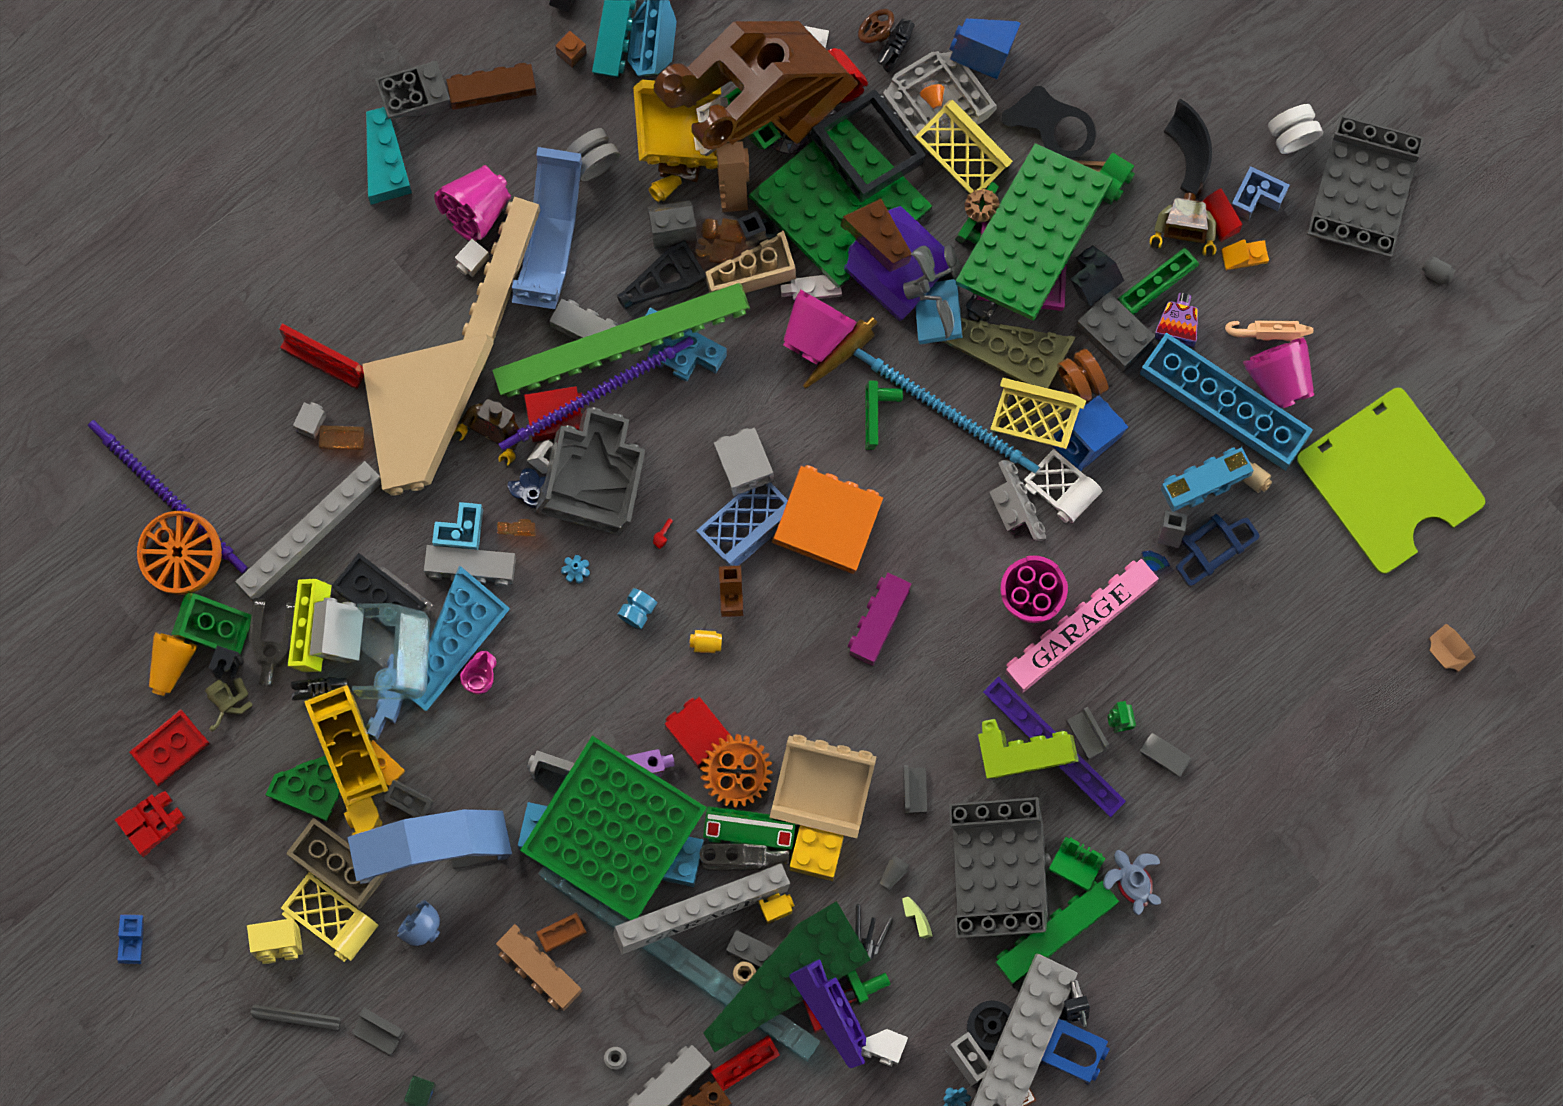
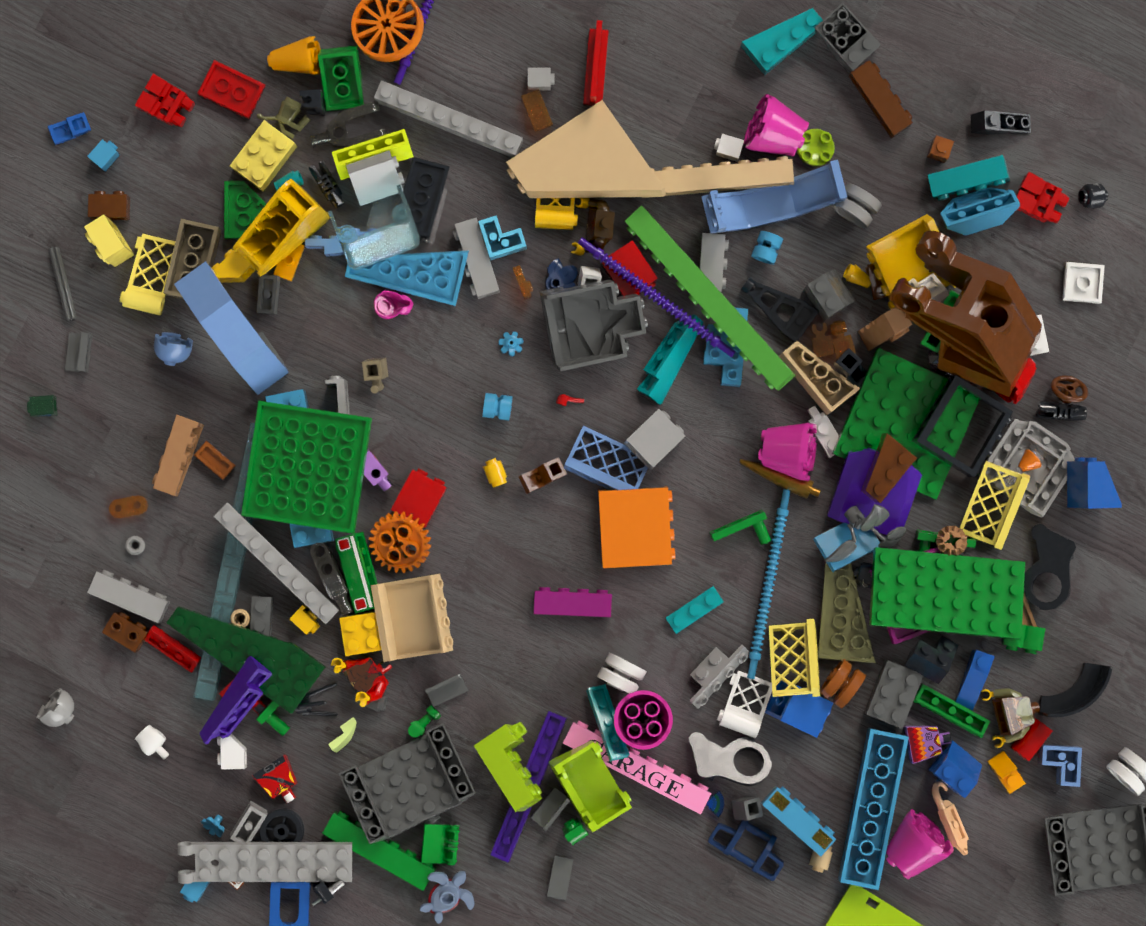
camera: 65 degrees right, 10 degrees up
(177, 911) = (104, 154): none -> dark azure brick
(233, 932) = (114, 206): none -> reddish brown brick
(257, 741) = (263, 156): none -> light yellow brick
(297, 727) = (296, 176): none -> teal cone
(463, 464) = (555, 216): none -> yellow piece
(515, 169) = (817, 147): none -> lime dish
(542, 719) = (375, 370): none -> dark tan brick
(570, 1047) = (128, 507): none -> clear orange plate
(601, 266) = (766, 254): none -> dark azure wheel
(667, 415) = (667, 361): none -> teal wedge
(864, 867) = (365, 677): none -> torso
(934, 1008) = (277, 779): none -> torso
(940, 498) = (694, 609): none -> teal plate
(942, 836) = (418, 726): none -> green leg
(976, 597) = (621, 674): none -> white wheel
(1021, 633) = (604, 716): none -> teal plate
(1080, 679) = (590, 785): none -> lime windscreen
(1109, 540) = (718, 761): none -> animal
(1133, 244) = (974, 678): none -> blue slope
(1222, 302) = (957, 769): none -> blue slope

